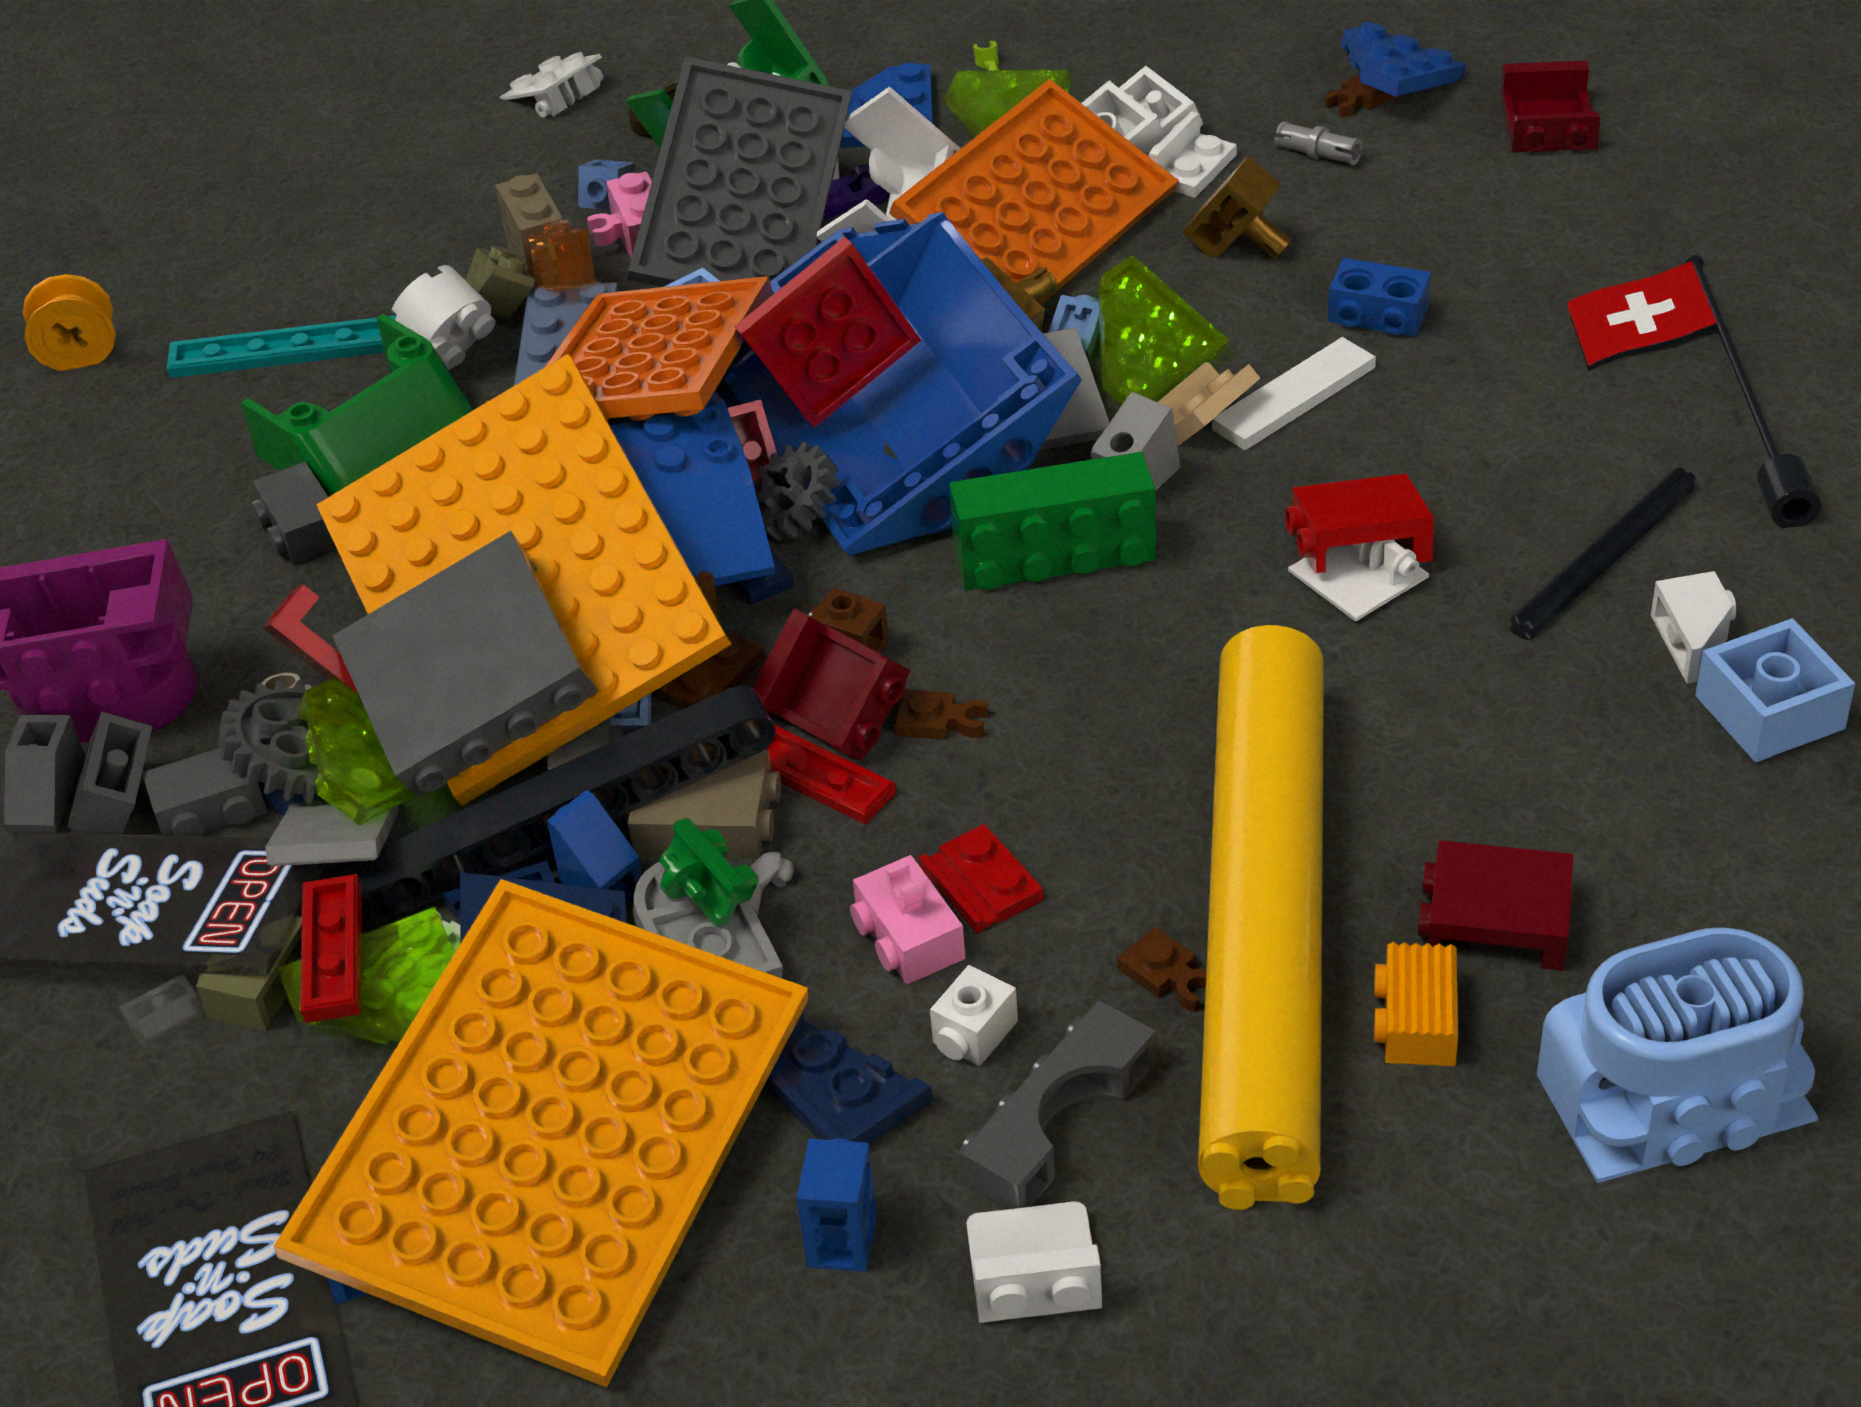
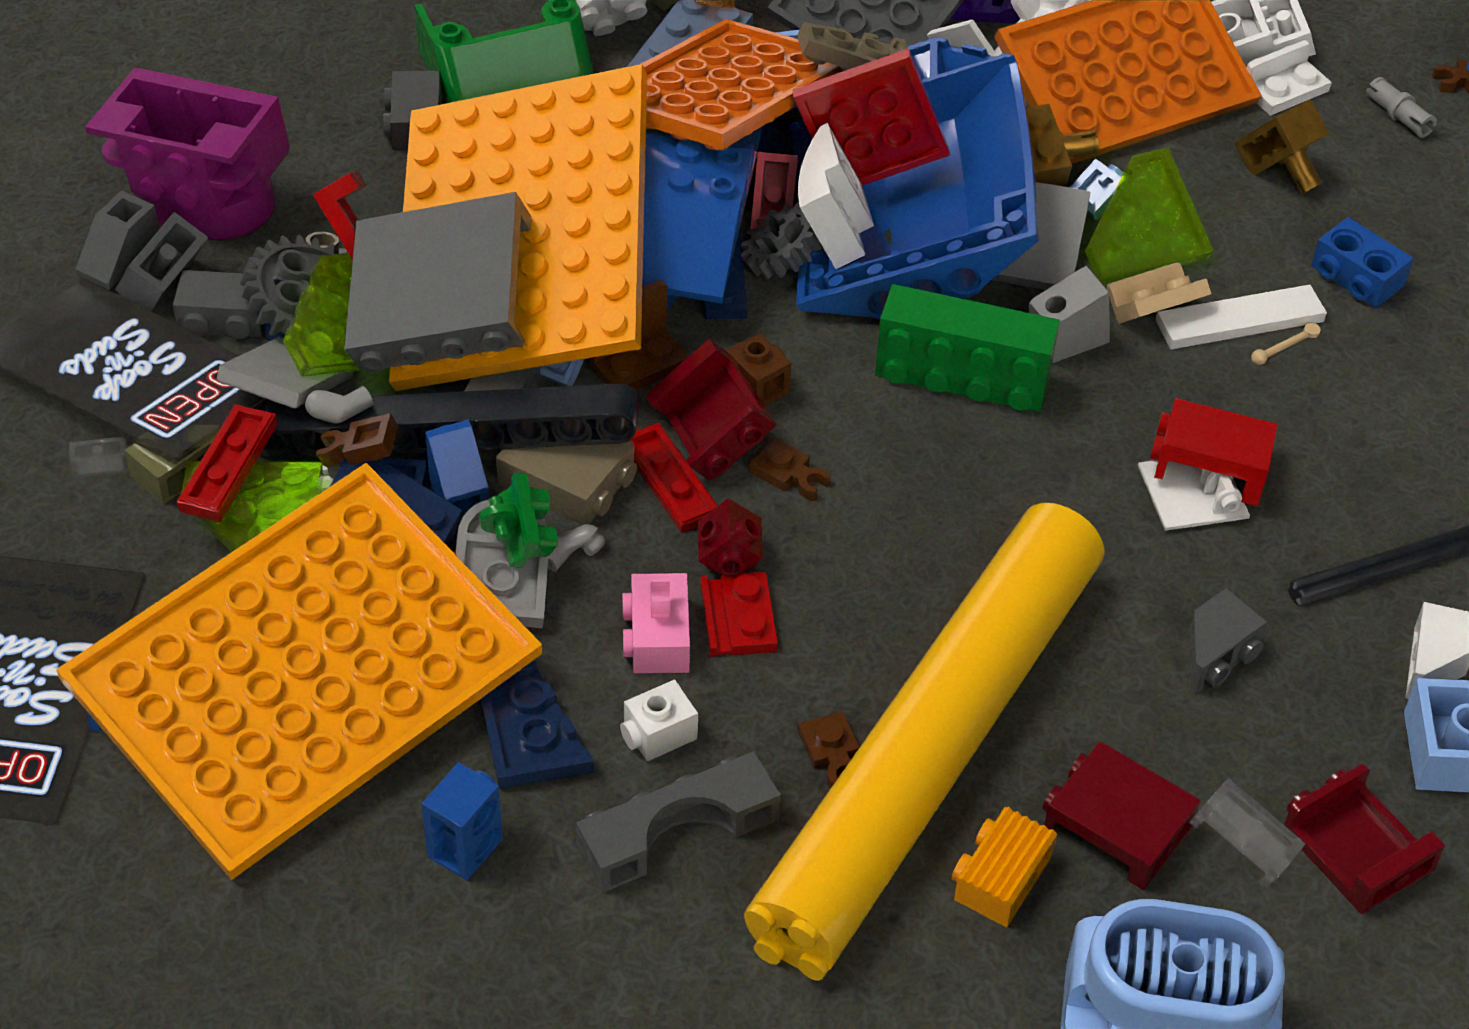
camera: 20 degrees right, 5 degrees up
(421, 840) = (336, 407): none -> light grey arm
(473, 865) = (365, 441): none -> reddish brown plate
(746, 270) = (839, 47): none -> dark tan wing
(831, 424) = (833, 199): none -> white slope
(930, 805) = (730, 539): none -> dark red brick
(1033, 1261) = (584, 930): white bracket -> none
(1337, 422) = (1261, 356): none -> tan hinge
(1480, 697) = (1220, 638): none -> dark grey slope
(1638, 861) = (1250, 830): none -> clear hinge
(1737, 832) = (1359, 840): none -> dark red panel

